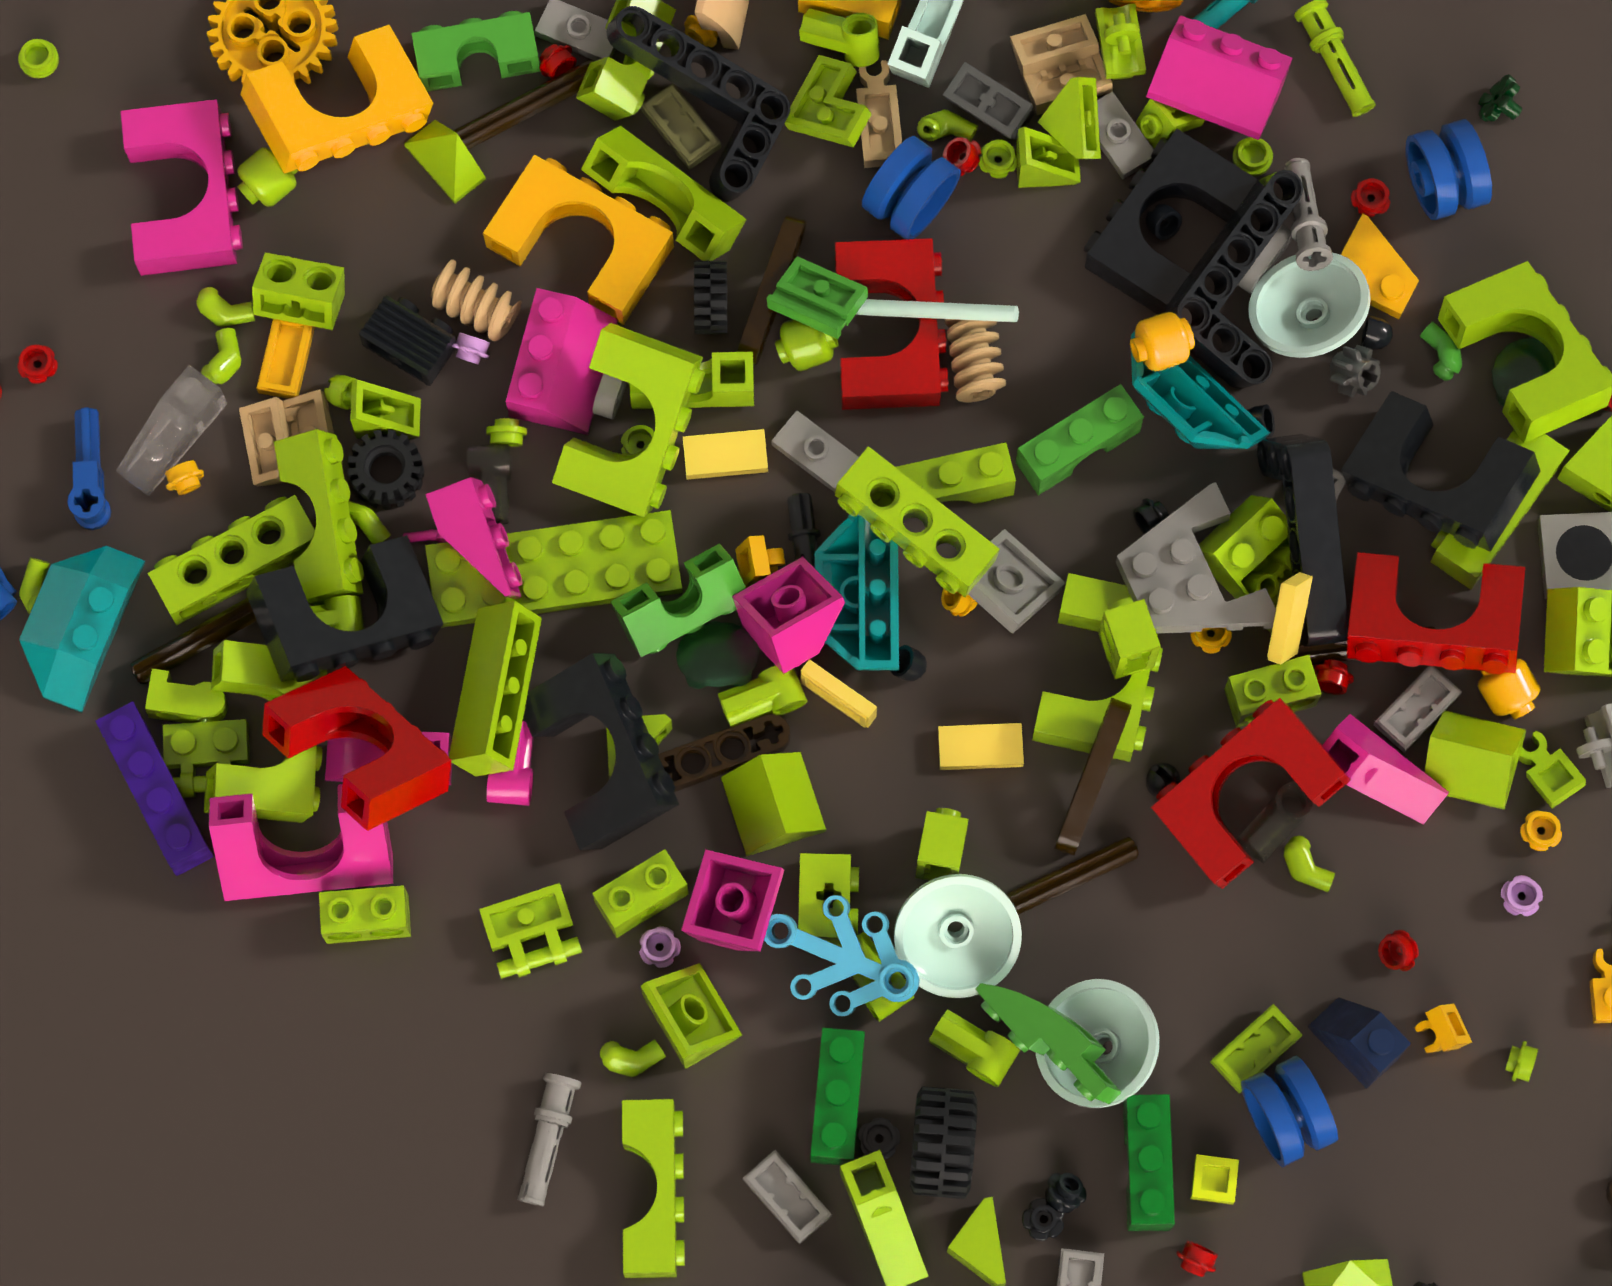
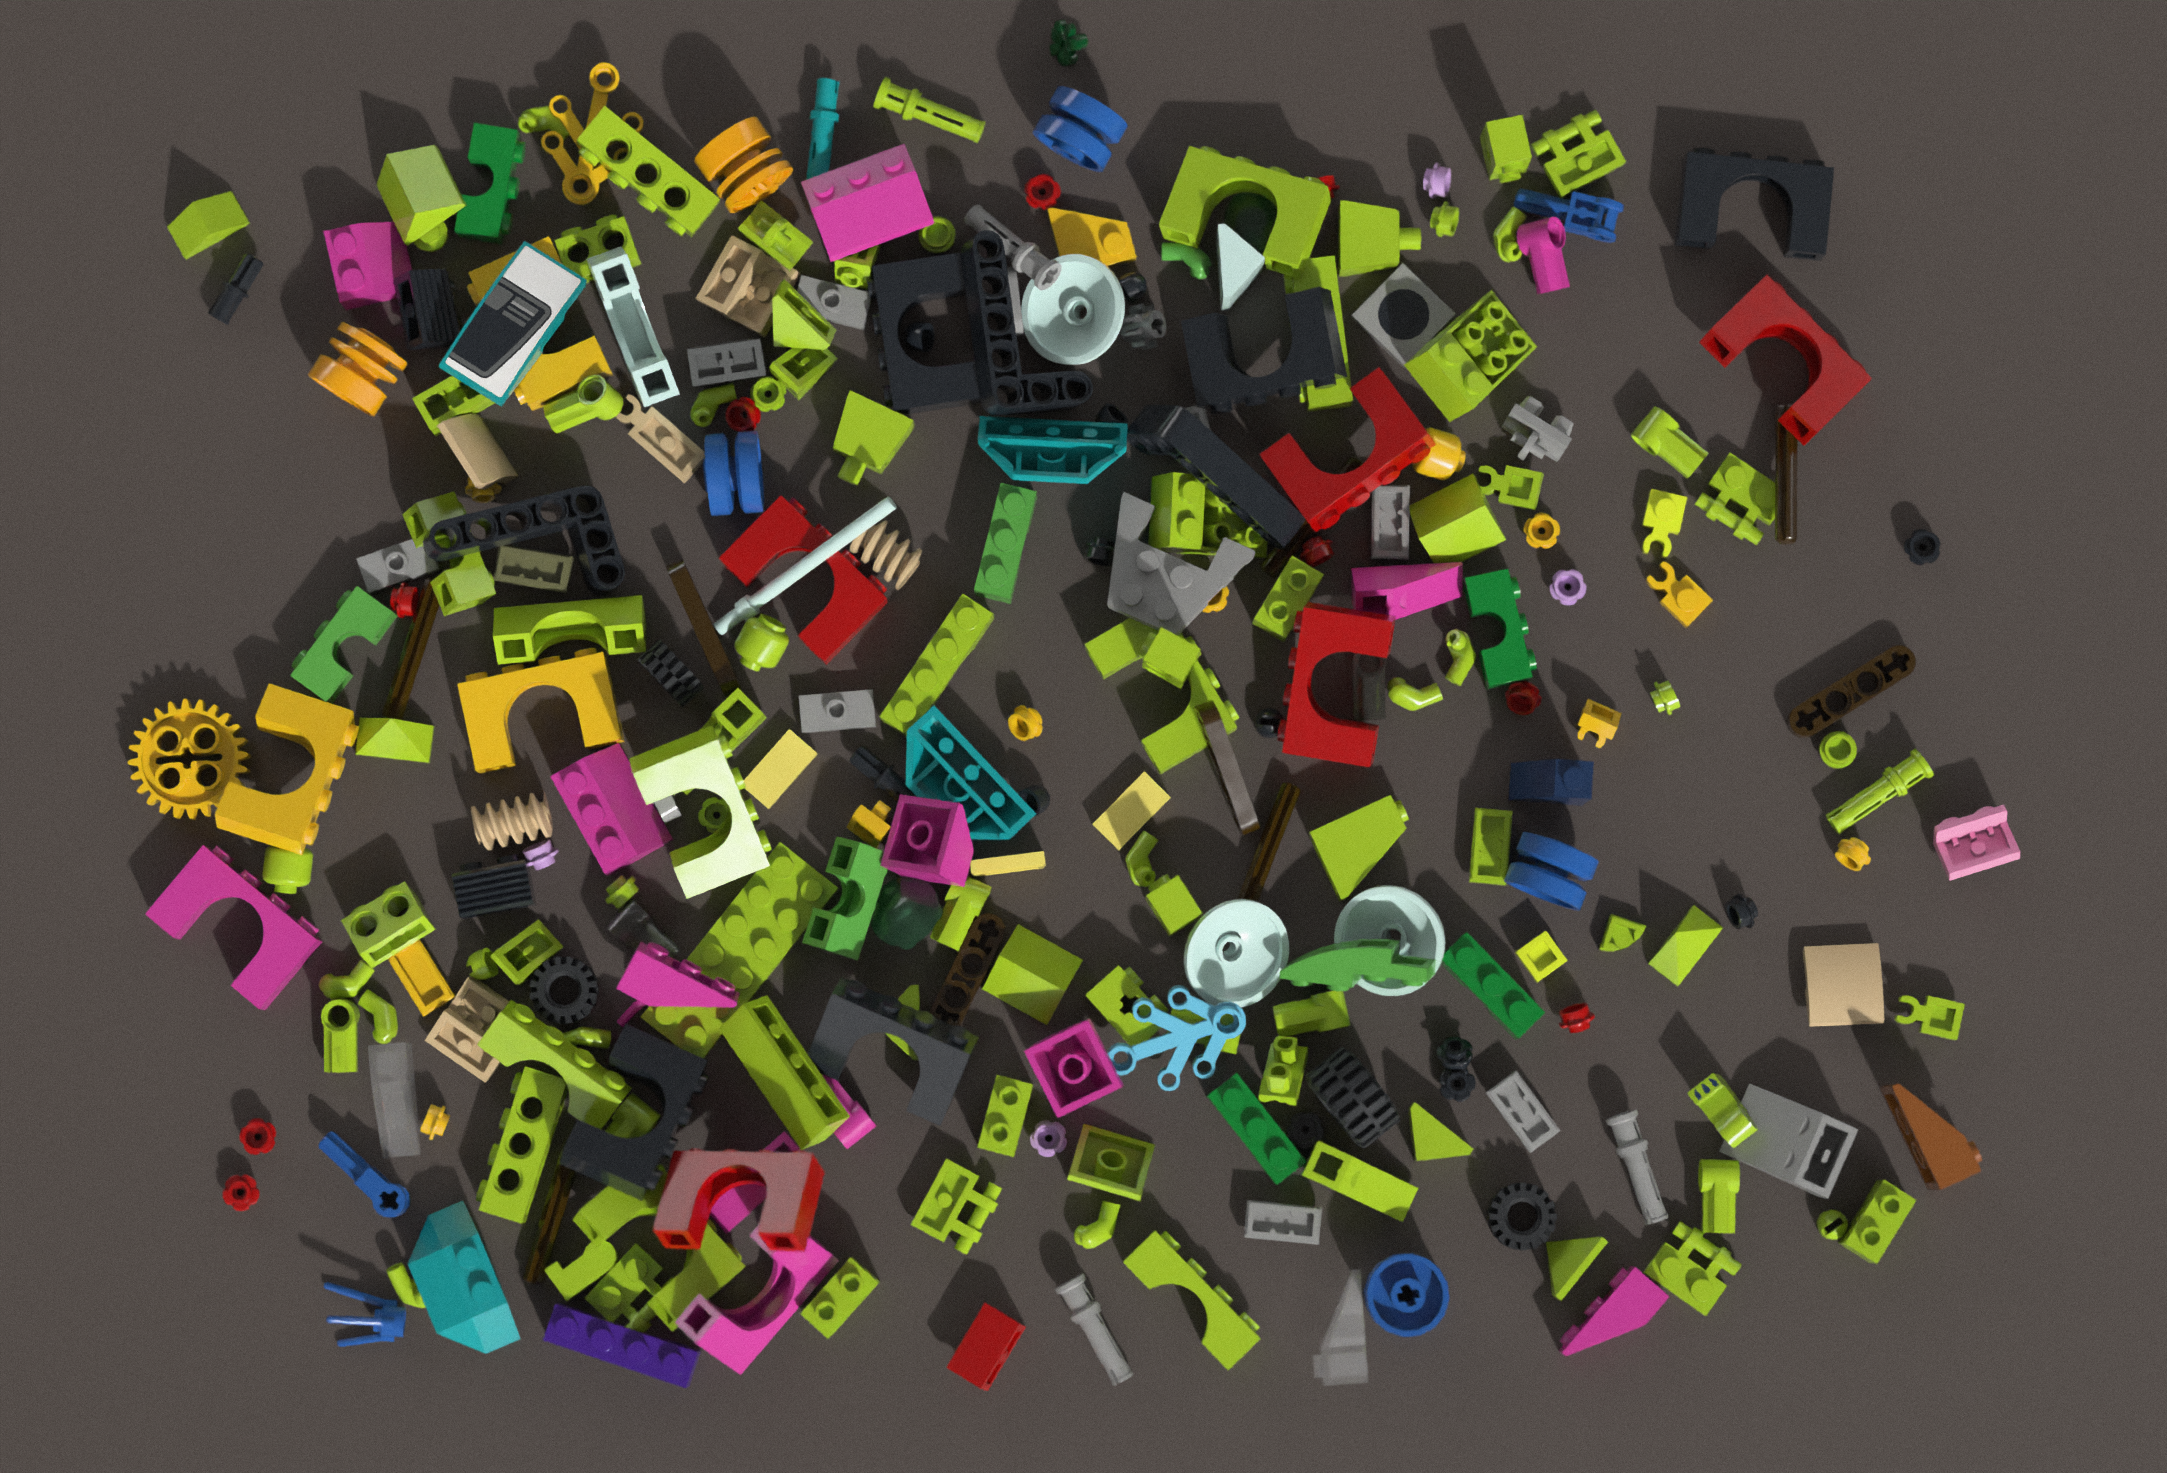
camera: 45 degrees left, 10 degrees up
(38, 58) = (45, 926): lime plate -> none
(175, 348) = (340, 1041): none -> lime piece
(443, 1068) = (986, 1347): none -> red hinge
(817, 297) = (744, 609): bright green plate -> none
(820, 104) = (613, 469): lime plate -> none
(875, 474) = (1015, 692): lime brick -> none
(906, 1070) = (1283, 1071): none -> lime hips
(950, 788) = (1138, 861): none -> lime arm
(1015, 584) = (1048, 684): light grey tile -> none
(1047, 260) = (868, 436): none -> lime torso
(1147, 942) = (1357, 842): none -> lime slope
(1162, 341) = (1006, 433): yellow head -> none
(1289, 618) = (1259, 545): light yellow tile -> none
(1301, 1225) = (1620, 933): none -> lime tile
(1379, 871) = (1462, 654): none -> lime arm
(1449, 845) = (1495, 596): none -> green arch
(1478, 390) = (1237, 265): none -> light aqua slope

